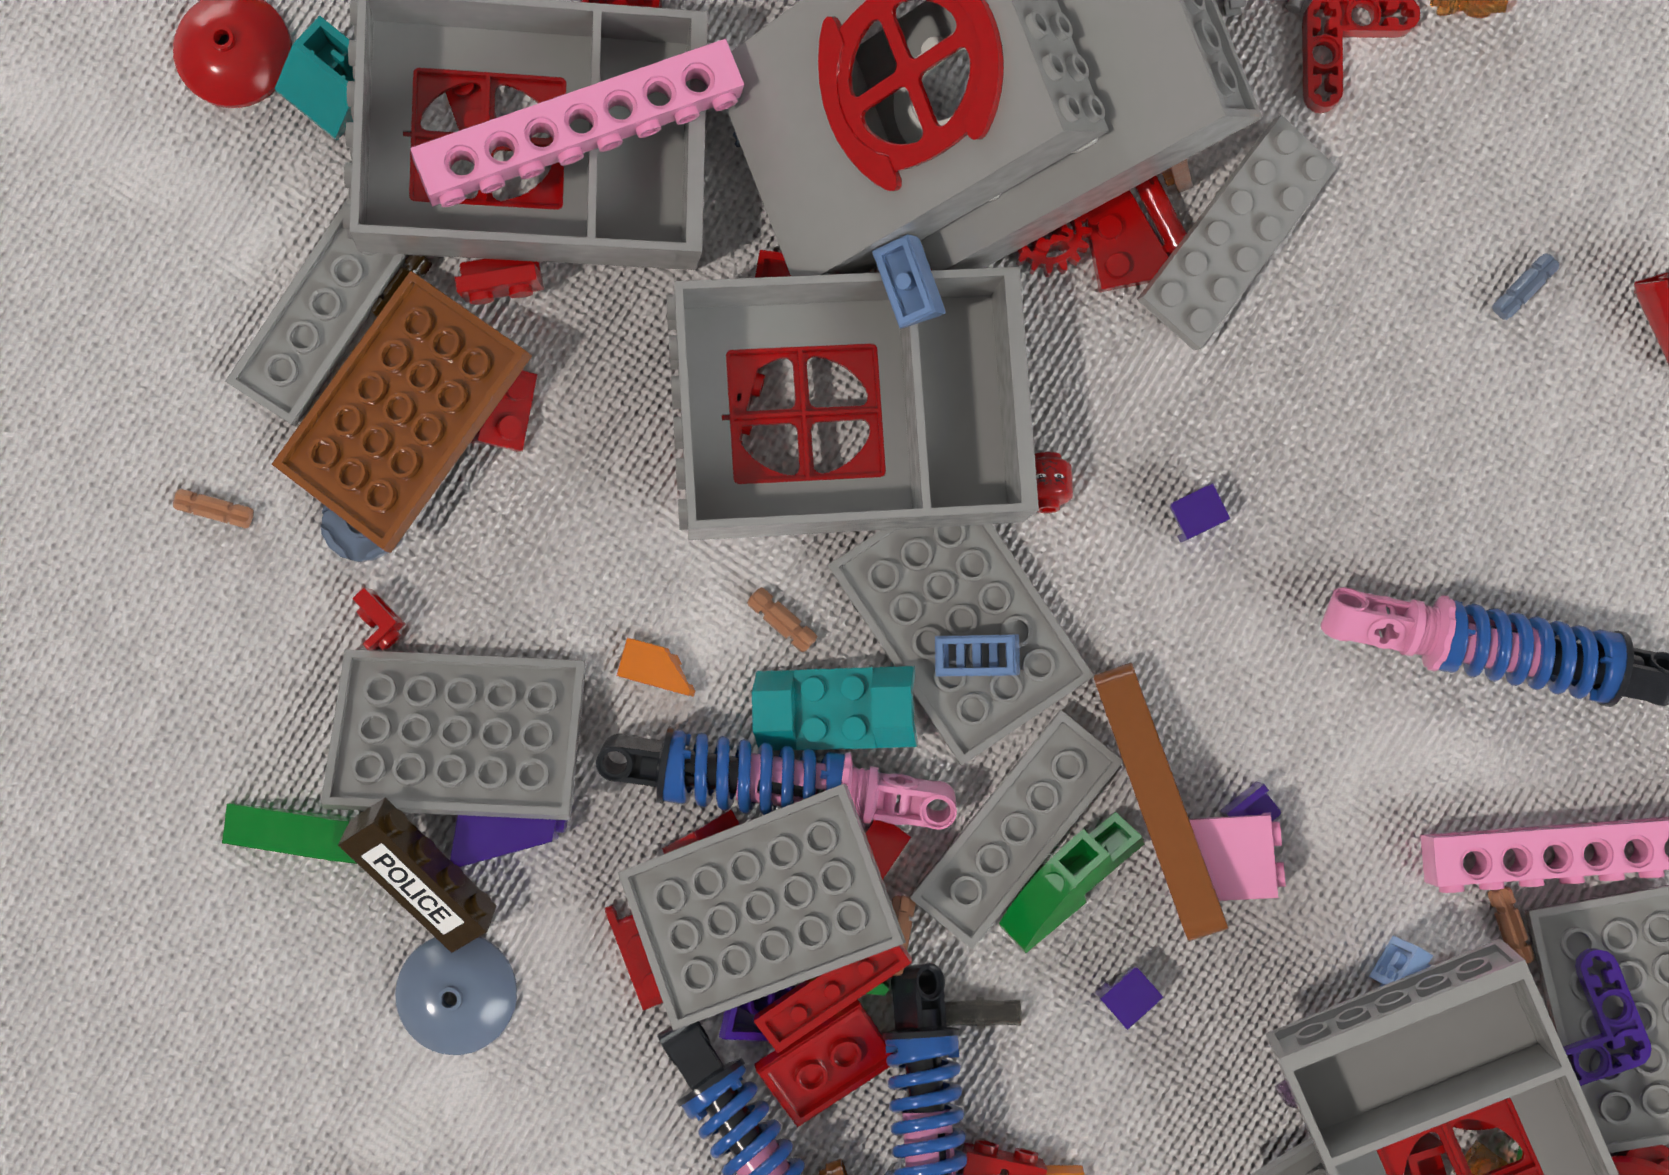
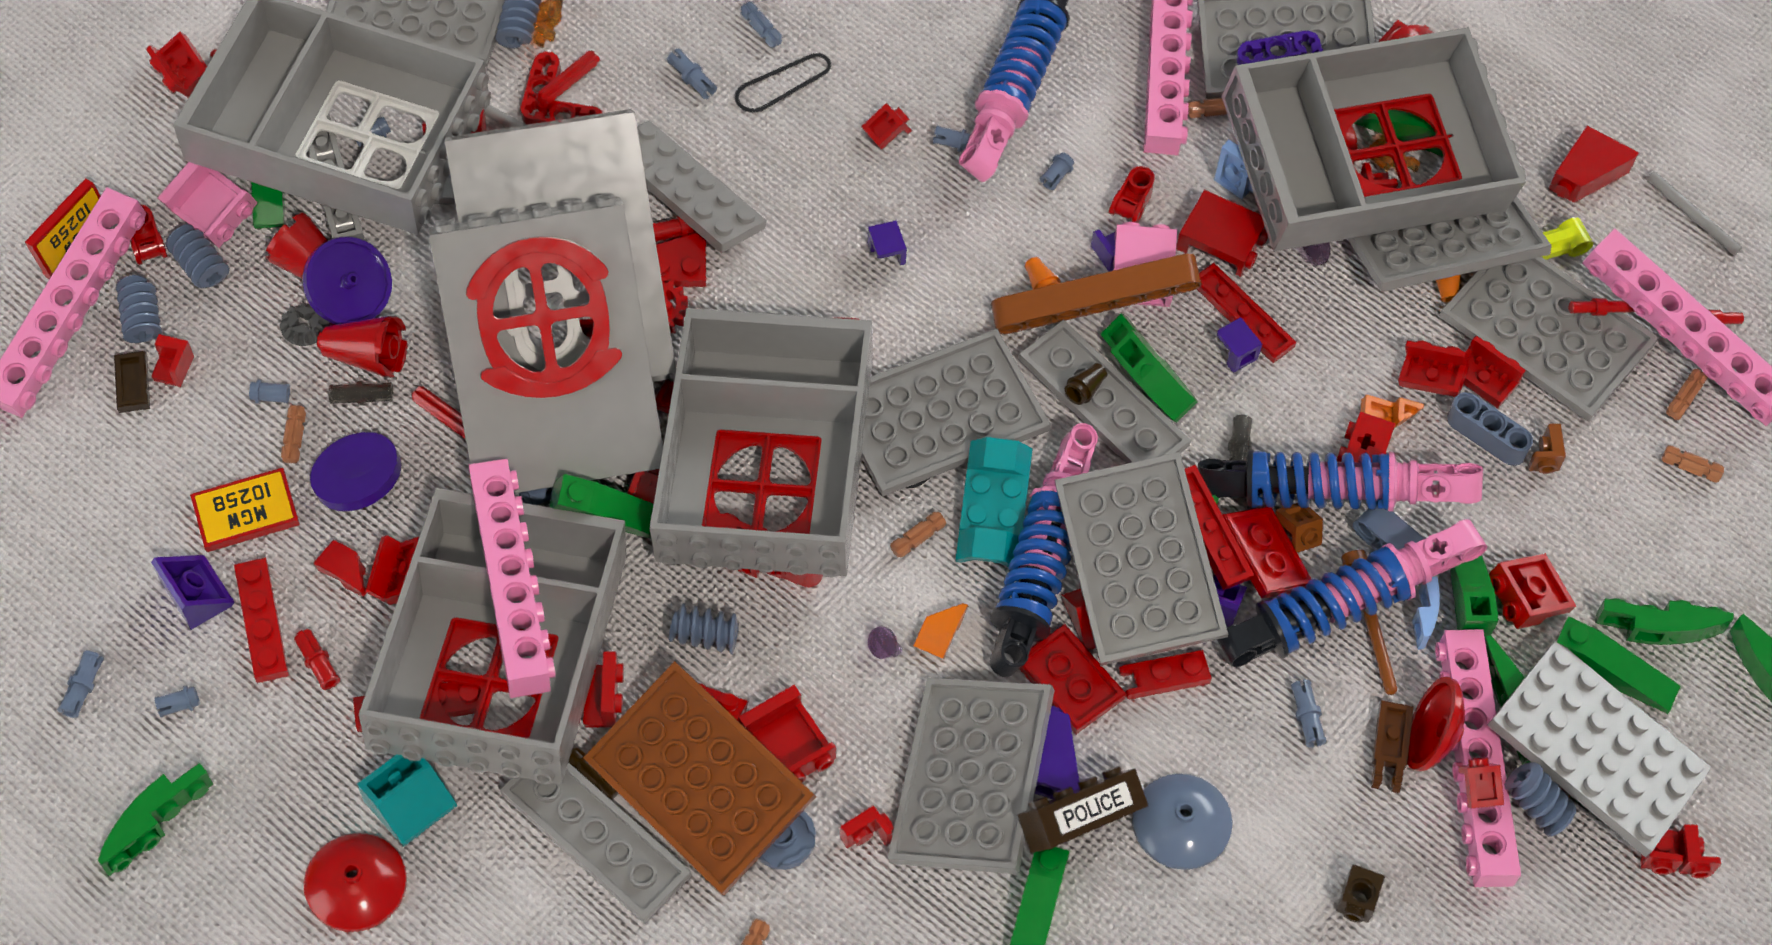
camera: 80 degrees left, 25 degrees down
(478, 508) = (790, 733): none -> red panel
(602, 380) = (704, 628): none -> sand blue piece
(616, 834) = (1079, 681): none -> red tile
(617, 1135) = (1308, 713): none -> sand blue pin
(626, 600) = (883, 643): none -> clear purple plate
(729, 216) = (595, 499): none -> green slope
(870, 1106) = (1304, 526): none -> dark orange bracket
(908, 281) = (684, 375): medium blue slope -> none
(1012, 655) = (970, 374): medium blue slope -> none
(1021, 802) = (1085, 384): none -> dark brown cone
(1183, 725) = (1040, 274): none -> orange cone
(1186, 997) = (1235, 303): none -> red tile
(1301, 959) = (1224, 231): none -> red panel
(1332, 829) = (1133, 199): none -> red piece
(1361, 722) = (1059, 168): none -> sand blue pin
(1380, 46) = (567, 78): none -> red axle
(1387, 572) = (951, 138): none -> sand blue pin
(1389, 483) = (886, 125): none -> red bracket
(1424, 209) = (692, 73): none -> sand blue pin
(1454, 321) = (755, 110): none -> black piece

